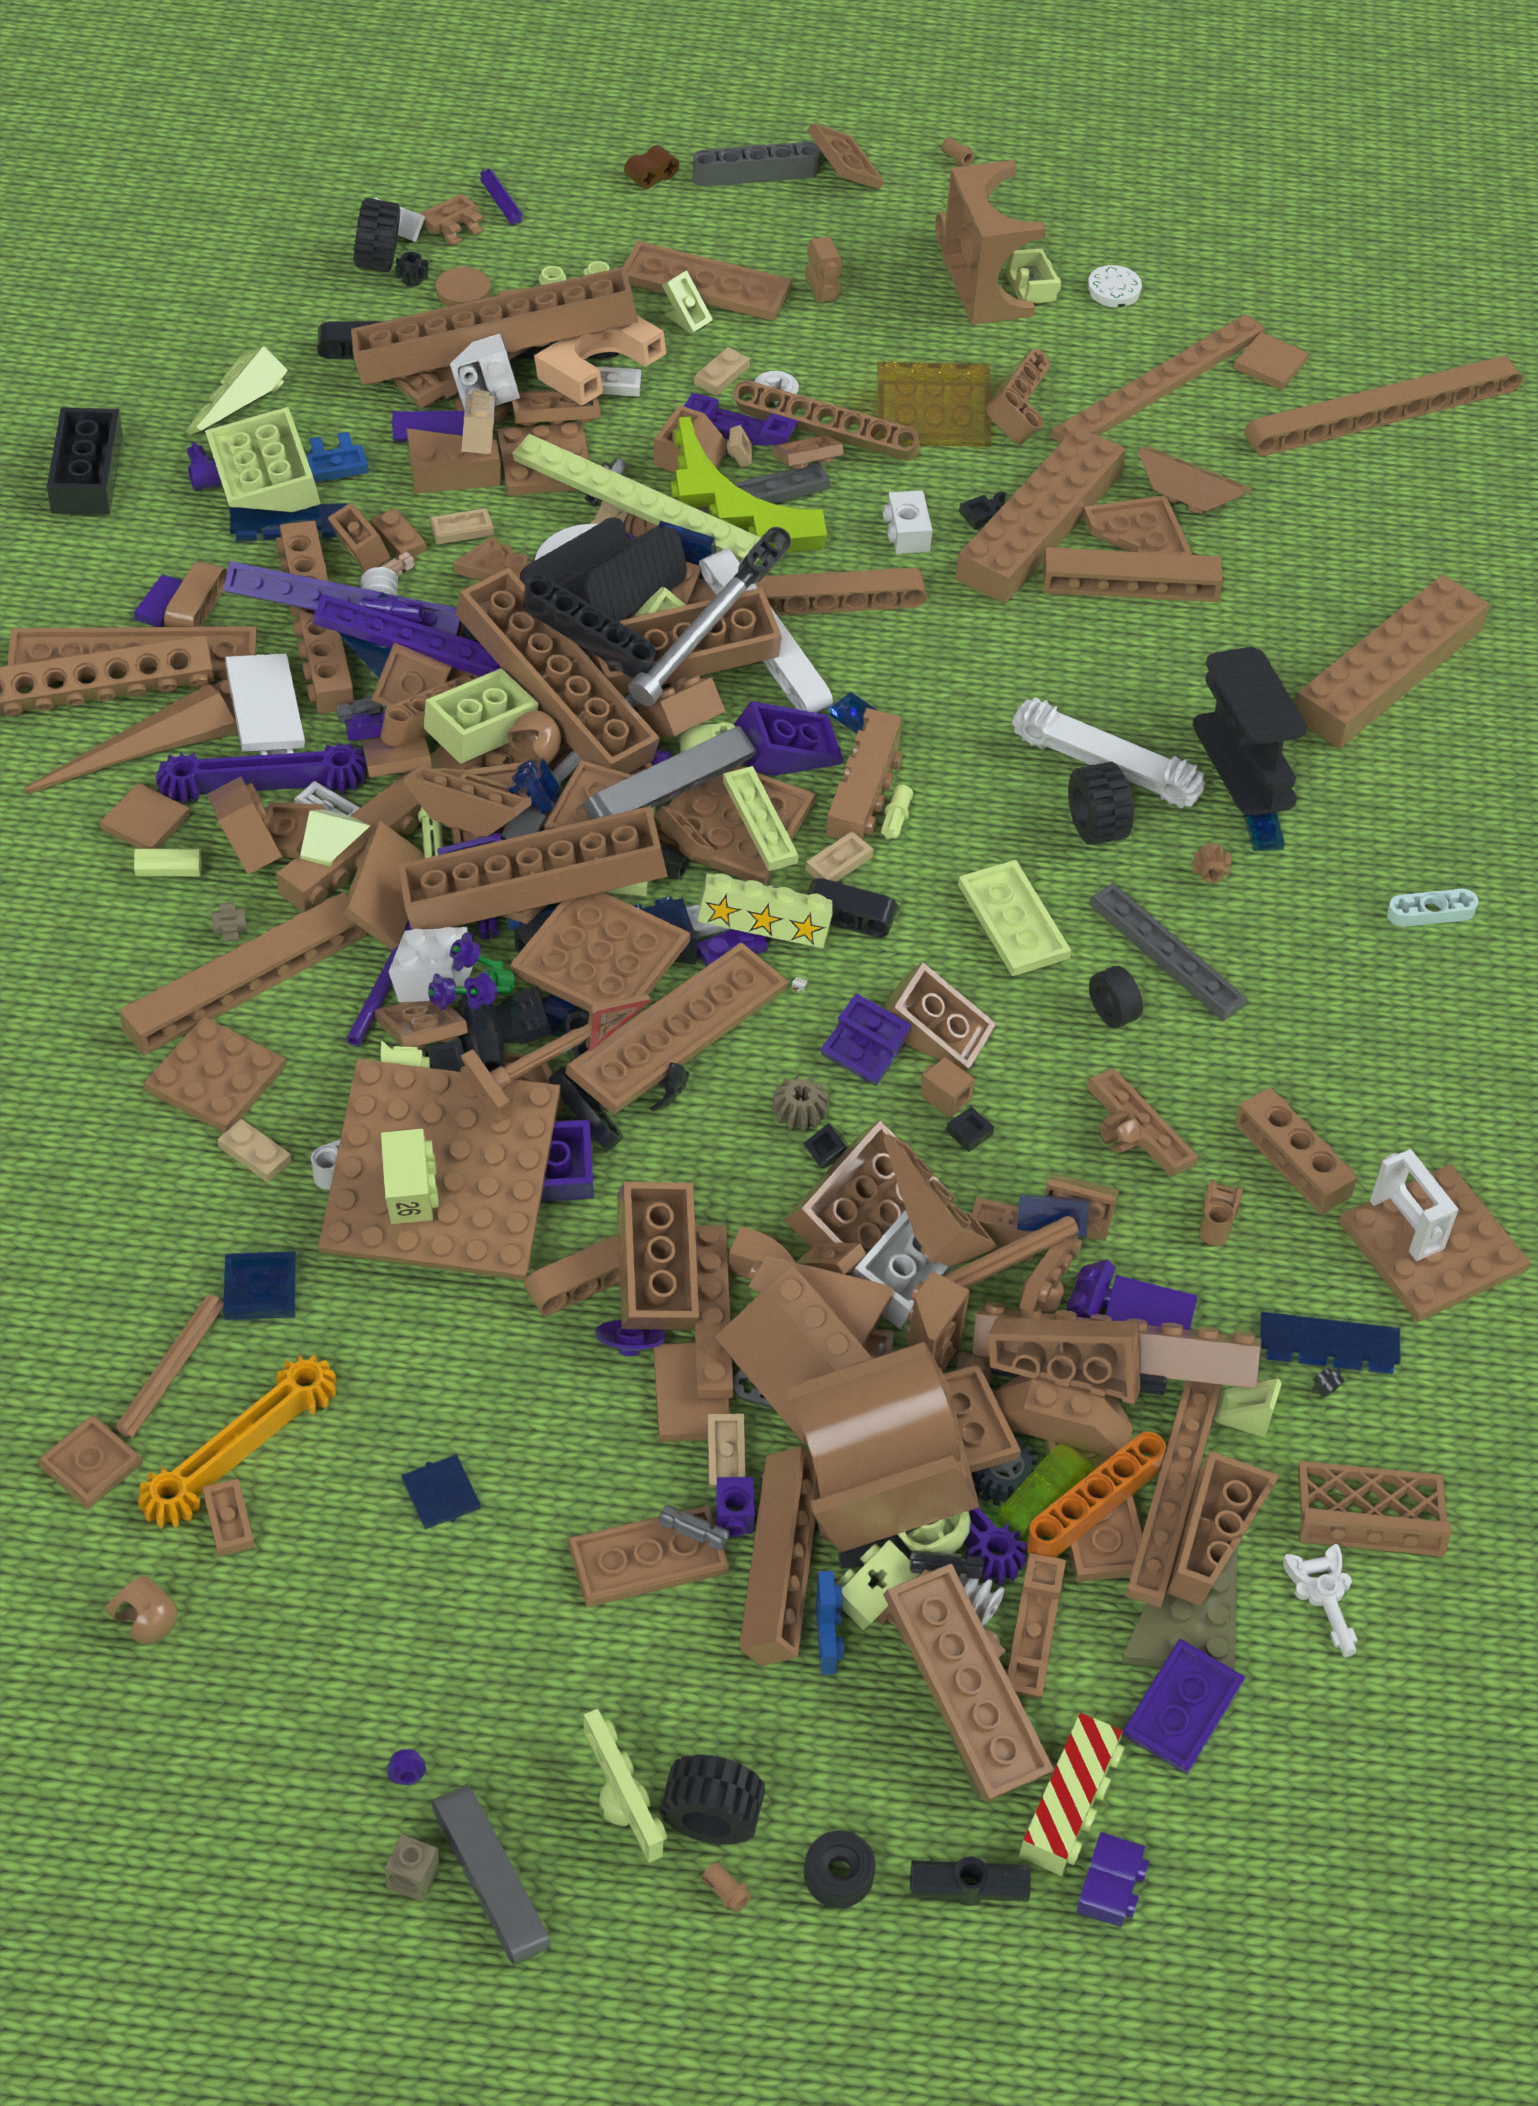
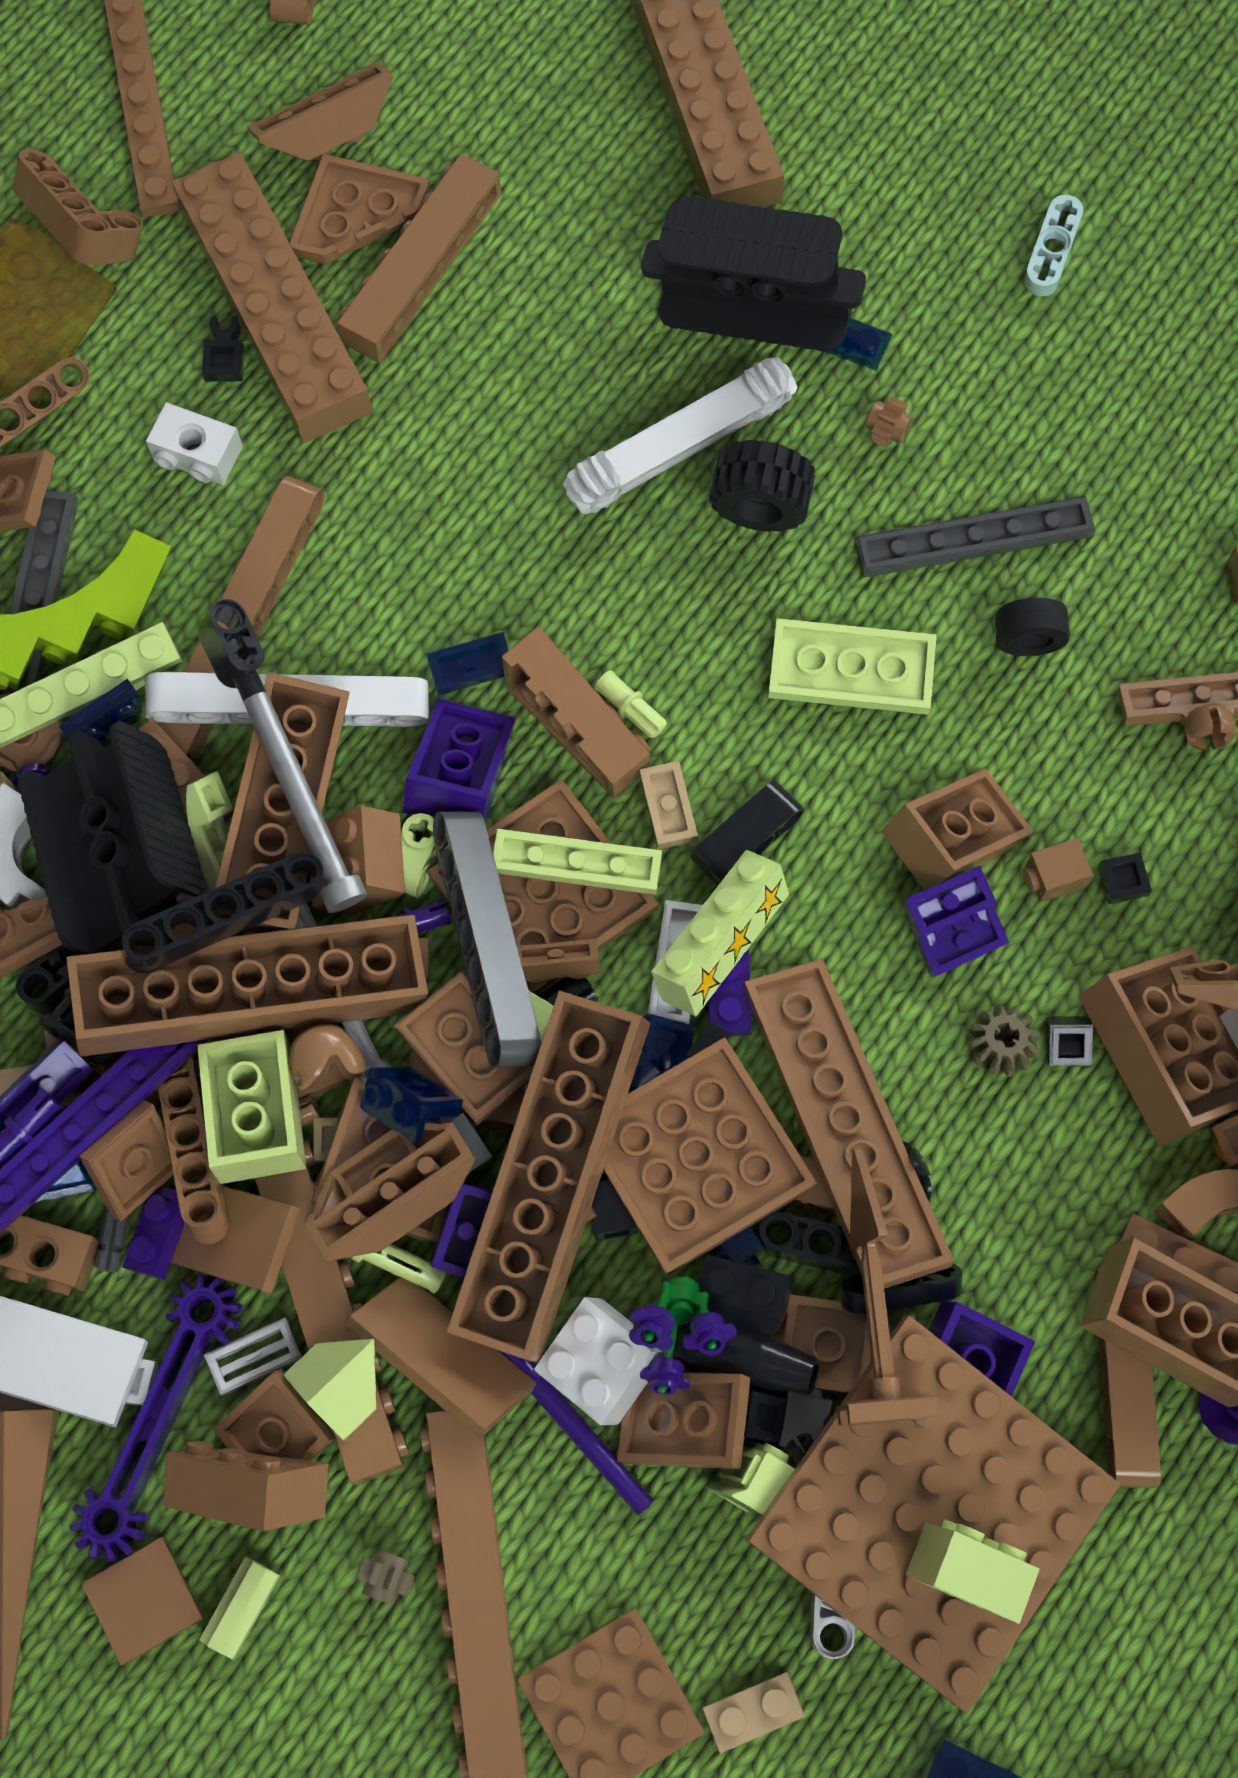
camera: 55 degrees left, 20 degrees up
(799, 984) = (818, 946): white piece -> none

